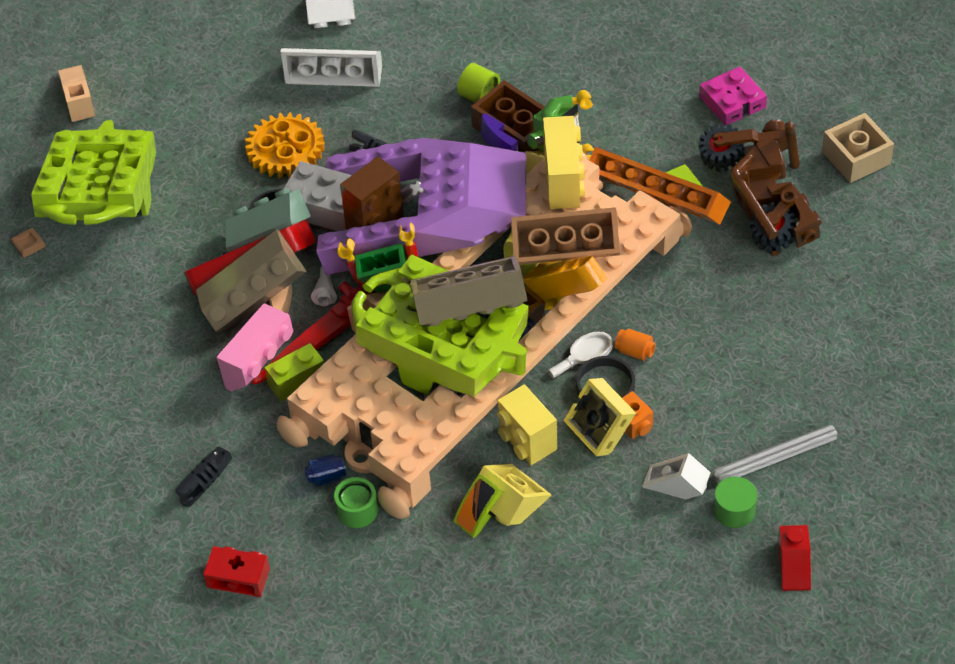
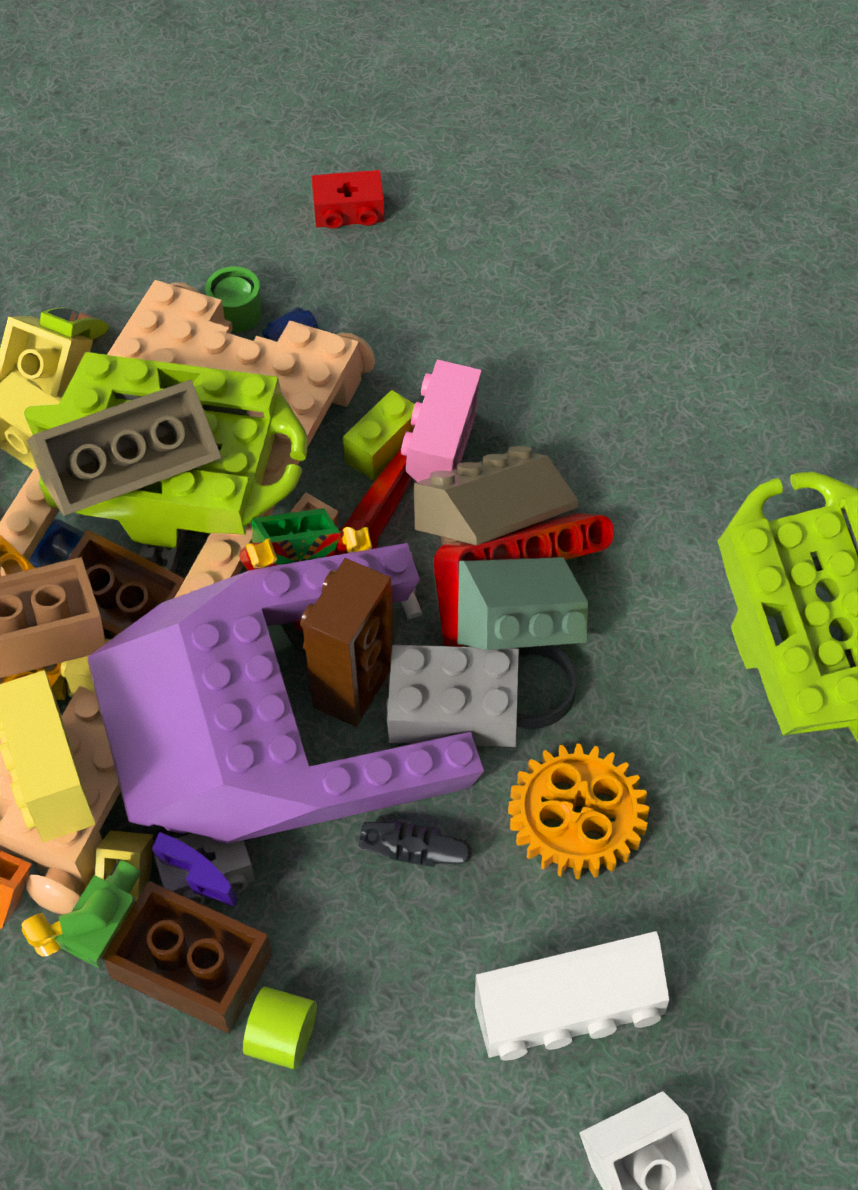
camera: 160 degrees right, 5 degrees up
(203, 476) = (443, 290): black hinge -> none
(410, 192) = (304, 676): light grey axle -> none

